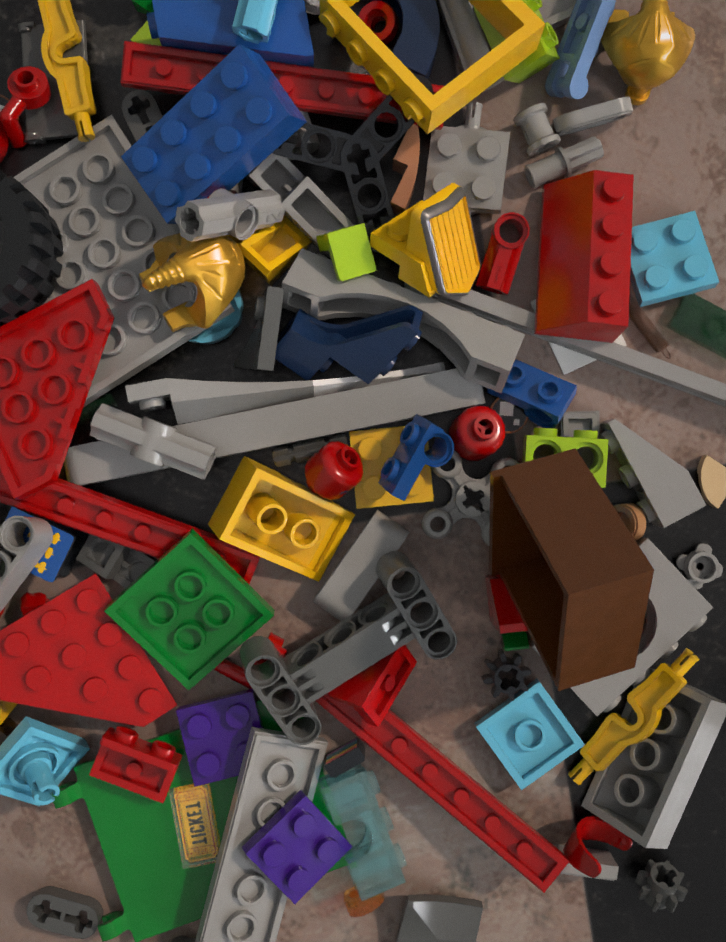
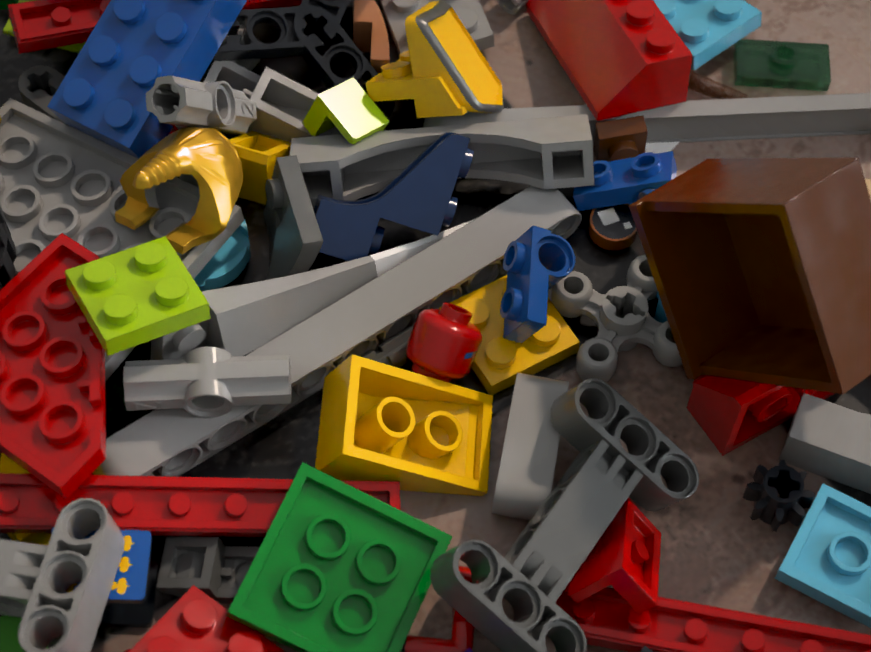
camera: 25 degrees left, 30 degrees down
(118, 367) = (137, 295): none -> lime plate
(477, 433) = (595, 239): red head -> none
(502, 257) = (520, 70): red piece -> none
(514, 641) = (760, 452): green piece -> none
(547, 351) = (620, 138): none -> reddish brown plate

